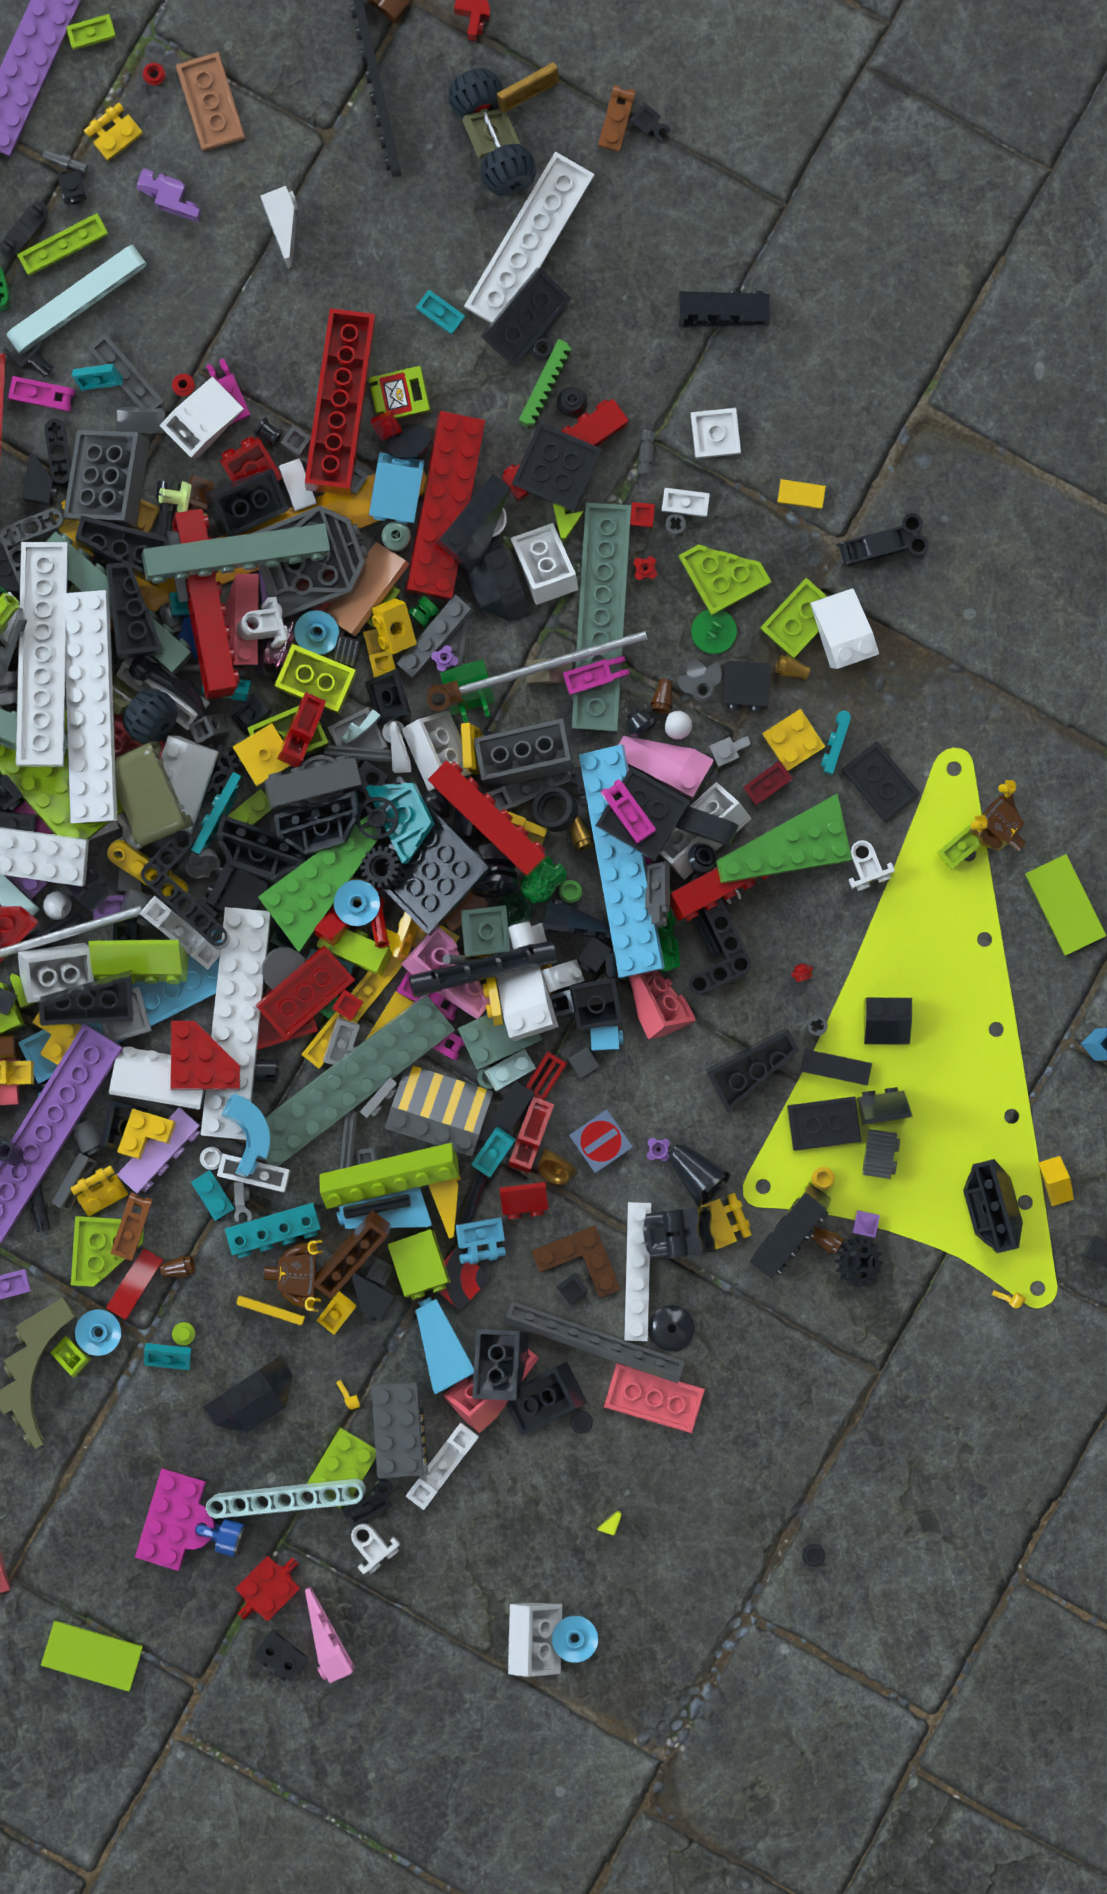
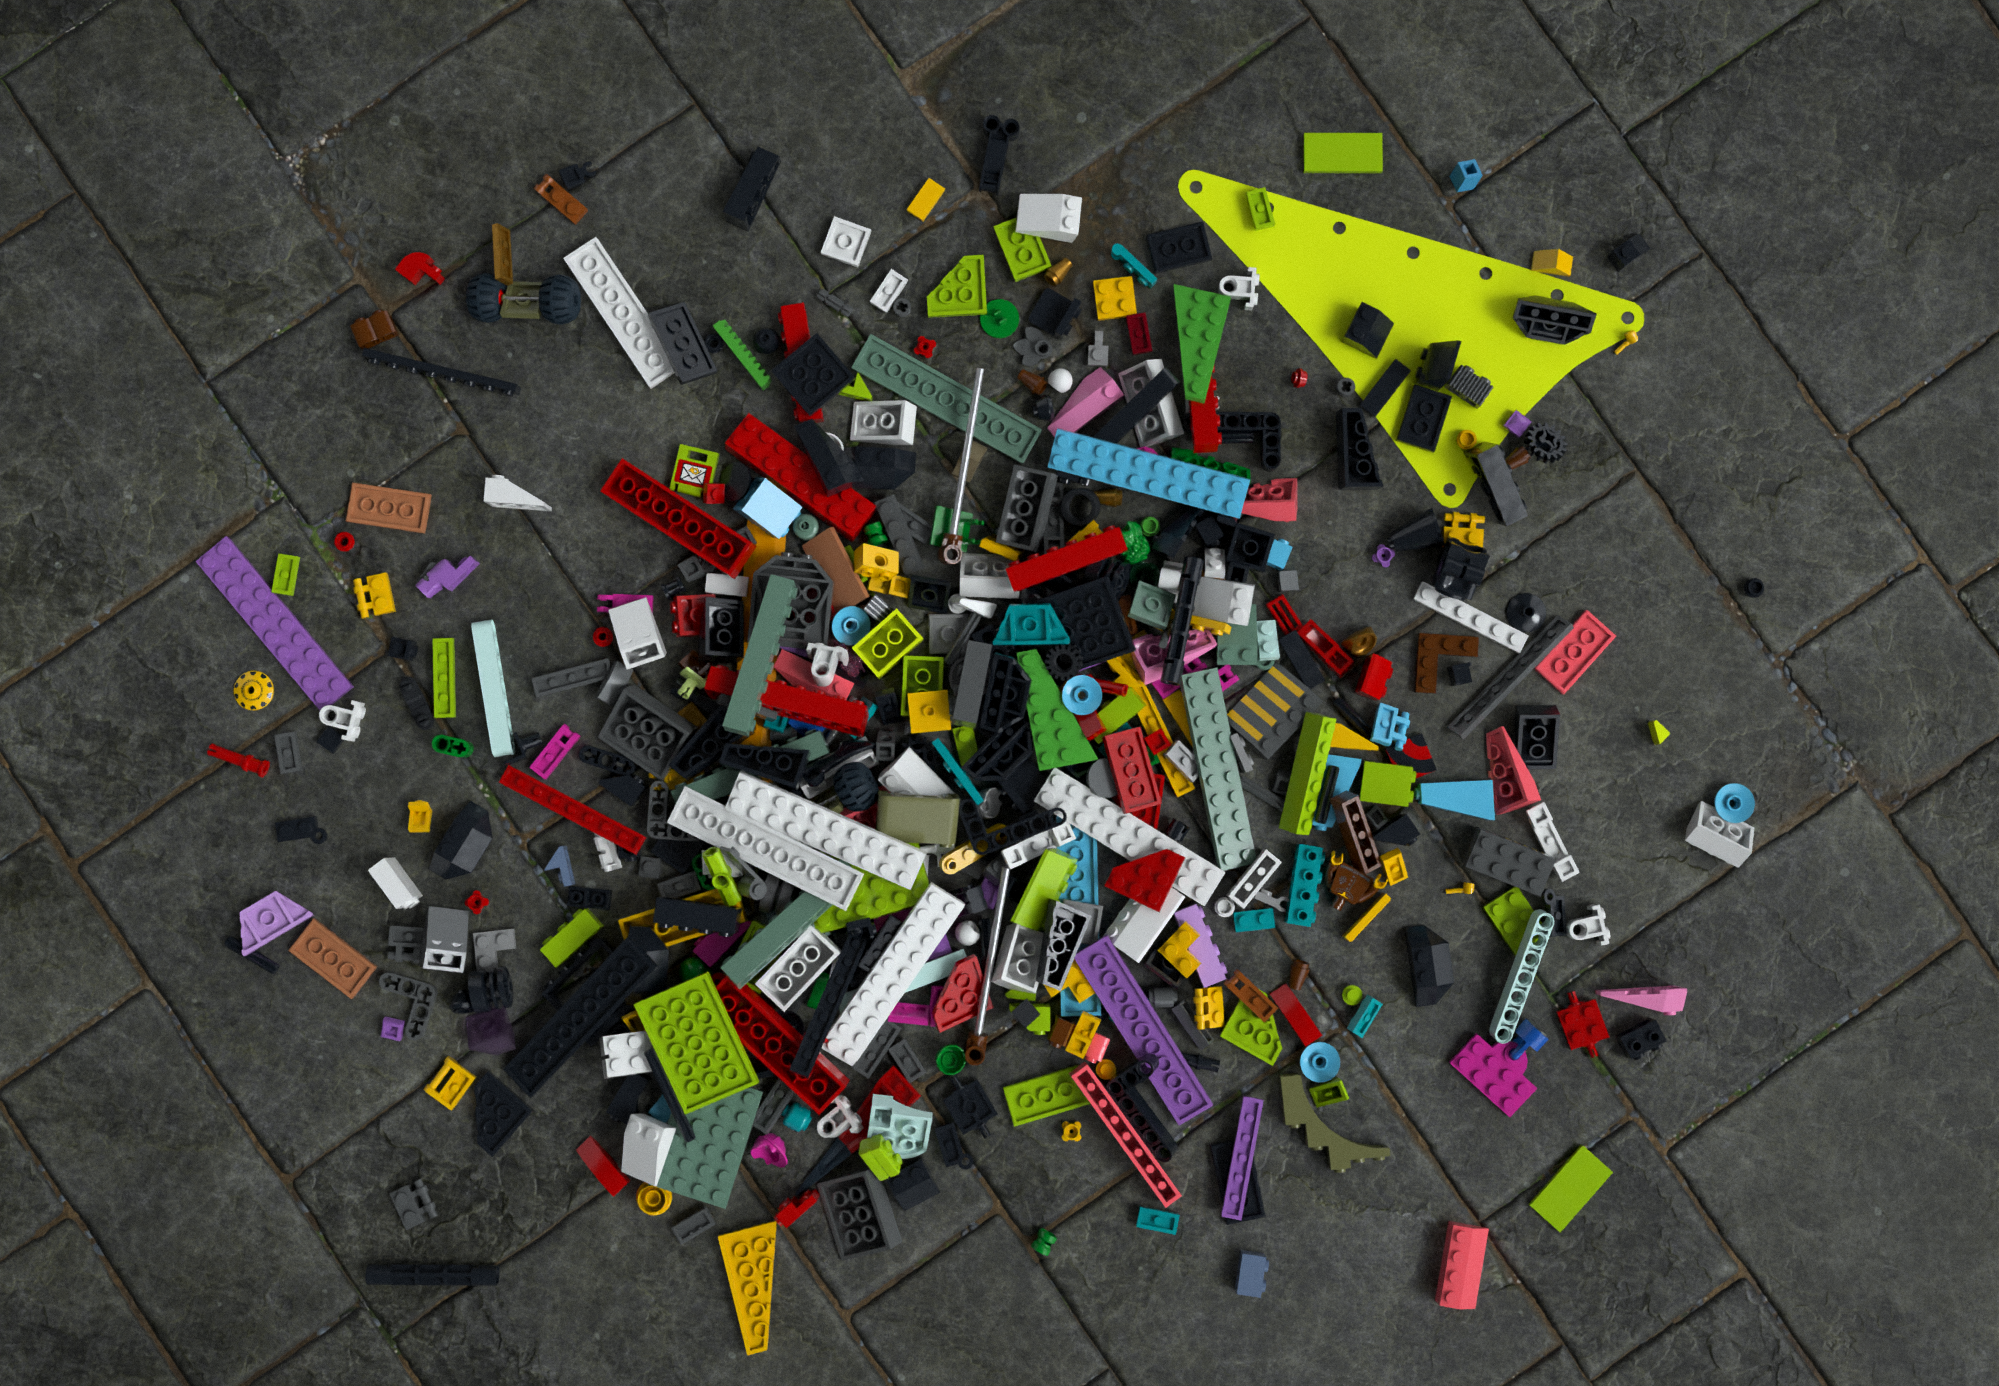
camera: 65 degrees left, 0 degrees up
(65, 161) = (378, 644): dark grey bar -> none
(97, 377) = (563, 700): teal plate -> none
(255, 1129) = (1225, 861): medium azure arch -> none
(301, 730) = (925, 672): red slope -> none
(355, 732) = (943, 633): light aqua slope -> none
(377, 818) = (1024, 646): black wheel -> none
(440, 312) = (645, 408): teal plate -> none
(443, 665) = (925, 539): medium lavender plate -> none
(493, 1152) = (1326, 683): teal plate -> none
(499, 1364) = (1496, 758): black slope -> none
(581, 1421) = (1568, 717): black plate -> none
(593, 675) = (990, 426): dark pink hinge -> none
(600, 1141) = (1356, 596): piece -> none
(628, 812) = (1116, 445): dark pink plate -> none
(642, 515) = (882, 328): red plate -> none
(658, 892) = (1188, 455): dark grey hinge -> none
(660, 806) = (1121, 436): black plate -> none
(702, 858) = (1177, 409): black cone -> none
(1000, 821) = (1256, 170): reddish brown torso -> none

